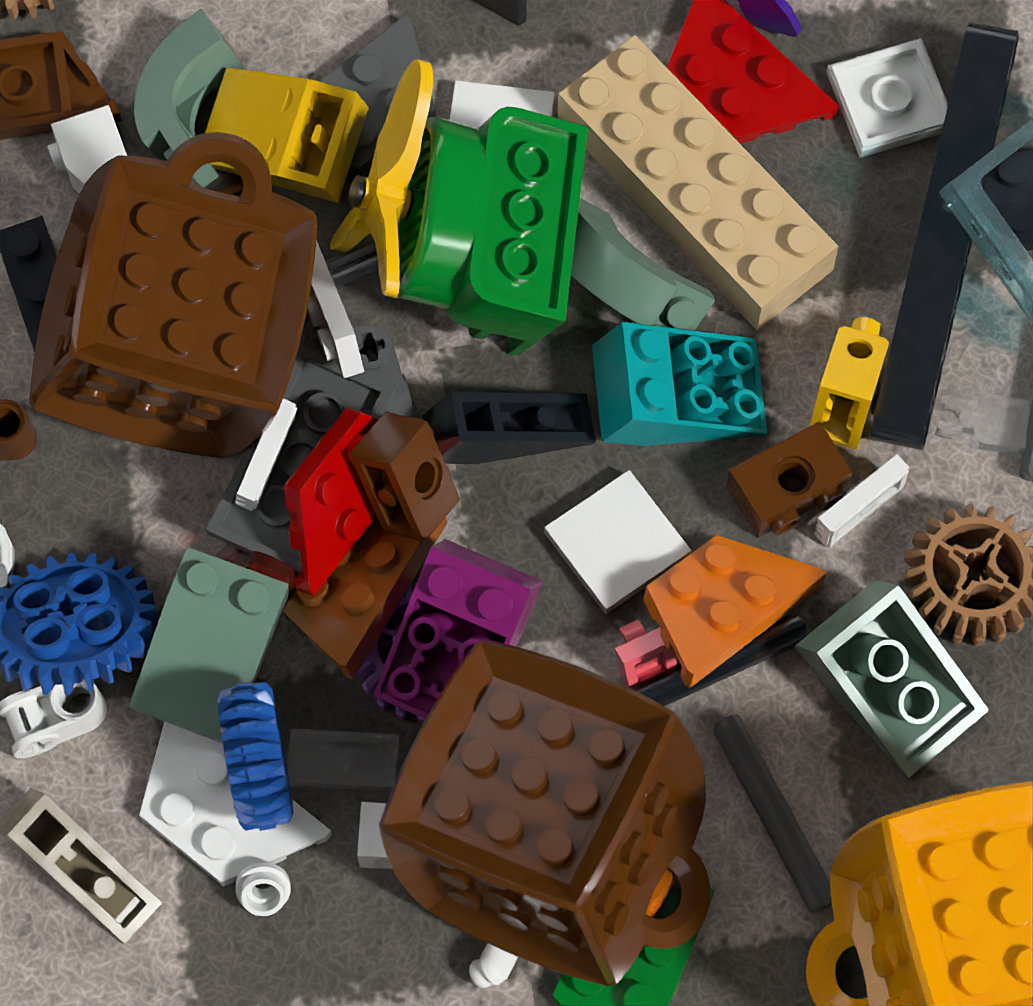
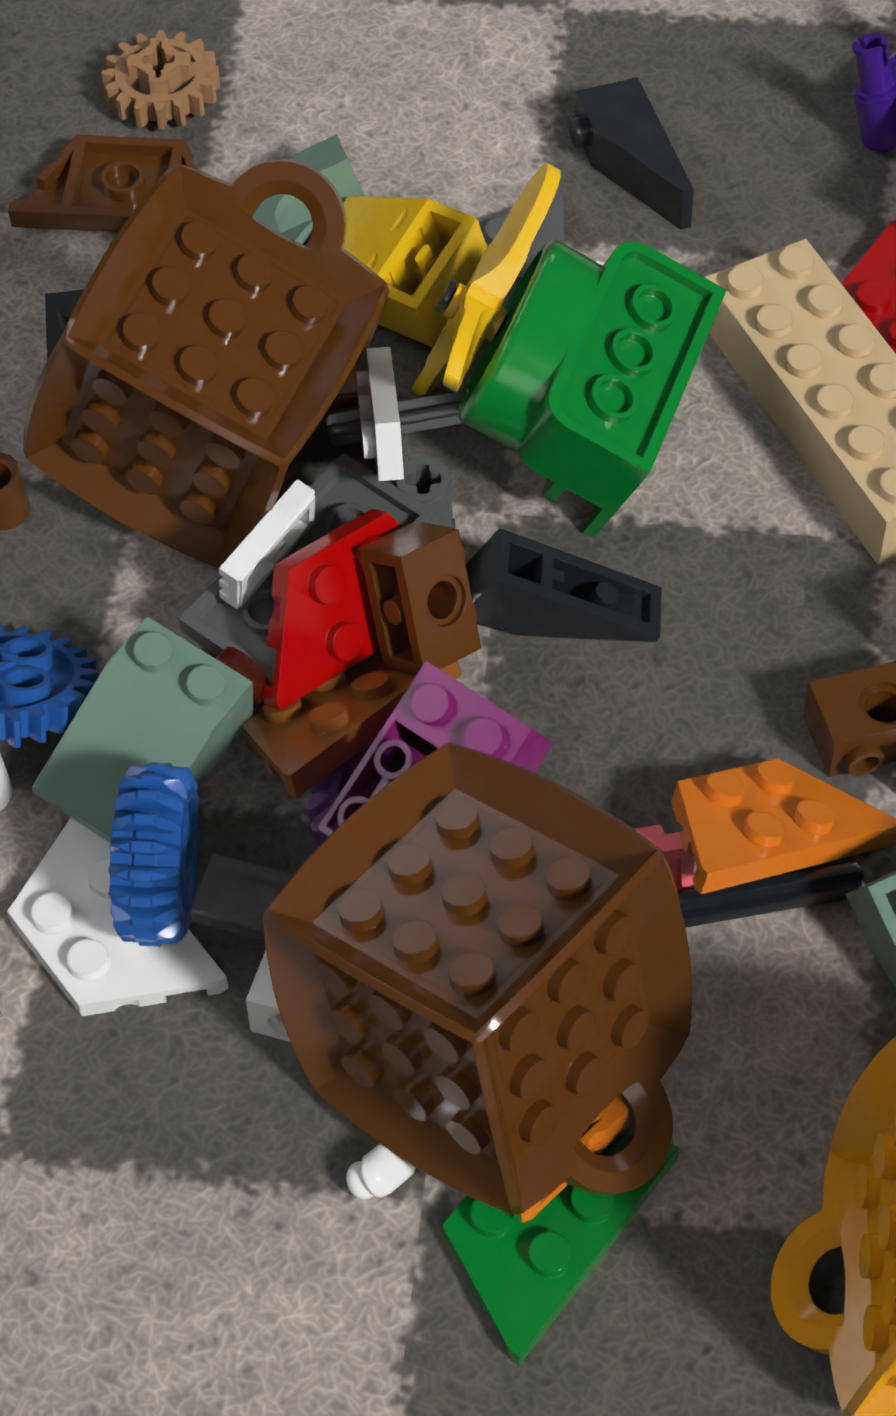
camera: 15 degrees right, 15 degrees down
(263, 901) = (114, 1036): white plate -> none
(617, 541) = (653, 740): white tile -> none
(631, 280) = (743, 469): sand green arch -> none
(676, 386) = (768, 594): teal slope -> none
(774, 812) = (776, 1079): dark grey axle -> none

